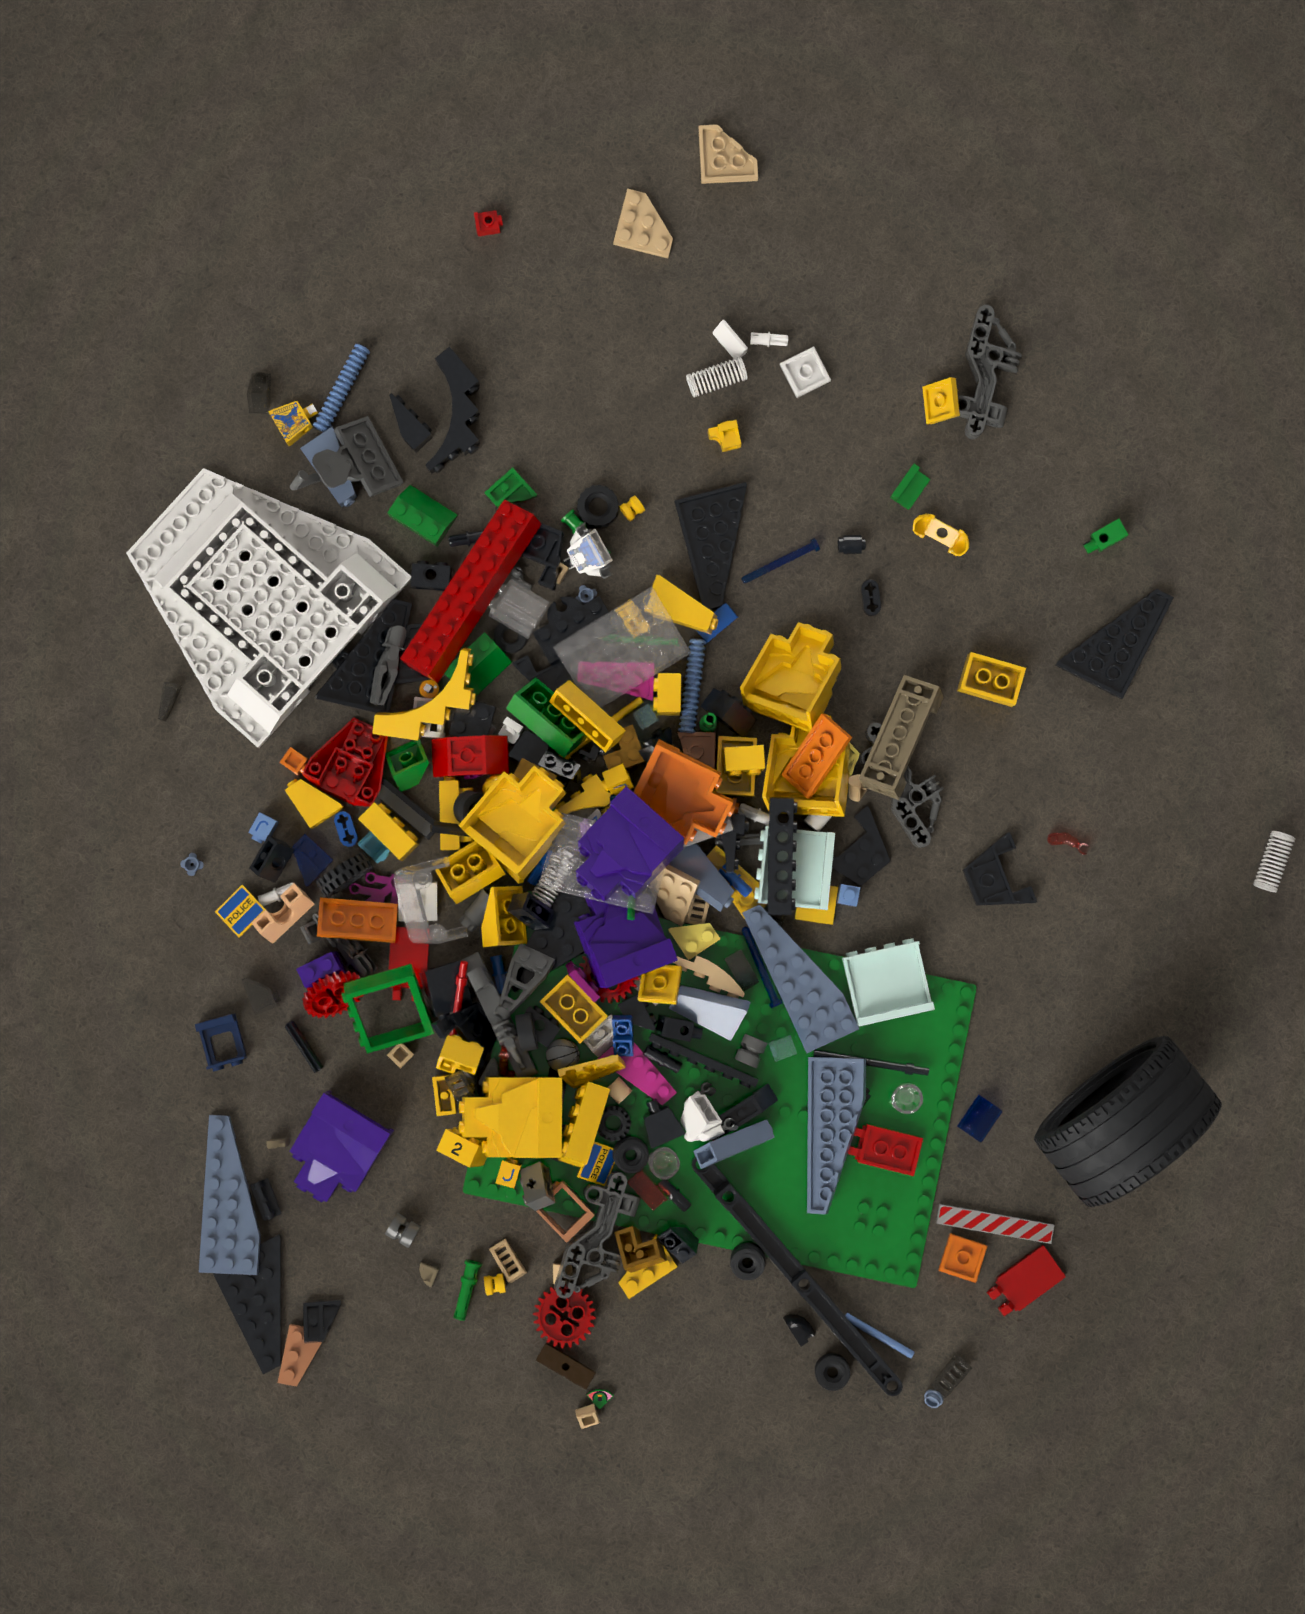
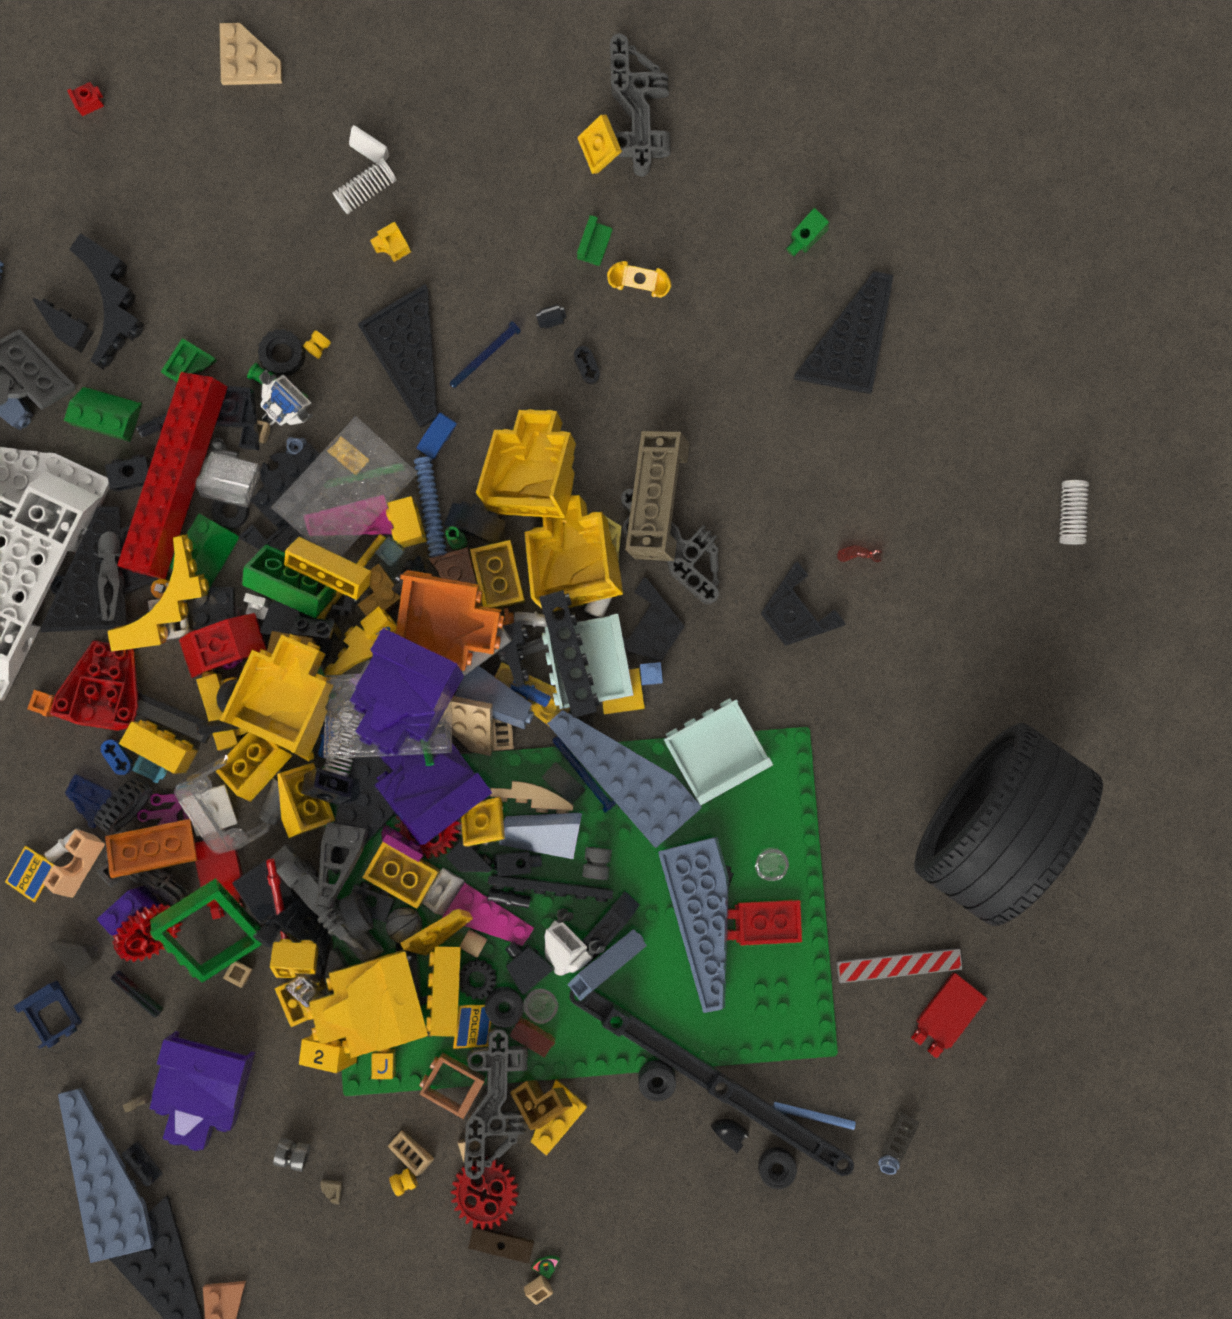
camera: 15 degrees left, 0 degrees up
(263, 827) = (30, 781): medium blue brick -> none
(271, 859) = (43, 799): black brick -> none
(311, 802) = (73, 741): yellow slope -> none
(319, 1319) = (231, 1274): black wing -> none
(407, 764) = (159, 673): green slope -> none
(468, 1281) = (375, 1185): green pin -> none
(499, 972) = (314, 855): blue axle -> none
(503, 1064) = (347, 958): clear red arm -> none
(537, 1186) = (415, 1069): dark grey brick -> none
(623, 1035) = (460, 886): blue slope -> none
(674, 1195) = (561, 1034): black axle -> none
(679, 1242) = (581, 1083): black slope -> none
(683, 608) = (398, 430): yellow slope -> none
(694, 938) = (506, 764): light yellow wing -> none
(743, 759) = (500, 565): yellow brick -> none
(768, 339) = (406, 134): white axle -> none
(782, 1048) = (628, 850): clear light blue panel -> none
(805, 372) = (454, 156): white plate -> none
(816, 756) = (575, 539): orange plate -> none
(855, 788) = (627, 562): tan brick -> none
(907, 1068) = (763, 833): black bar -> none
(962, 1257) = (876, 1010): orange plate -> none
(979, 1118) = (852, 862): clear blue panel -> none
(991, 679) = (733, 410): yellow brick -> none

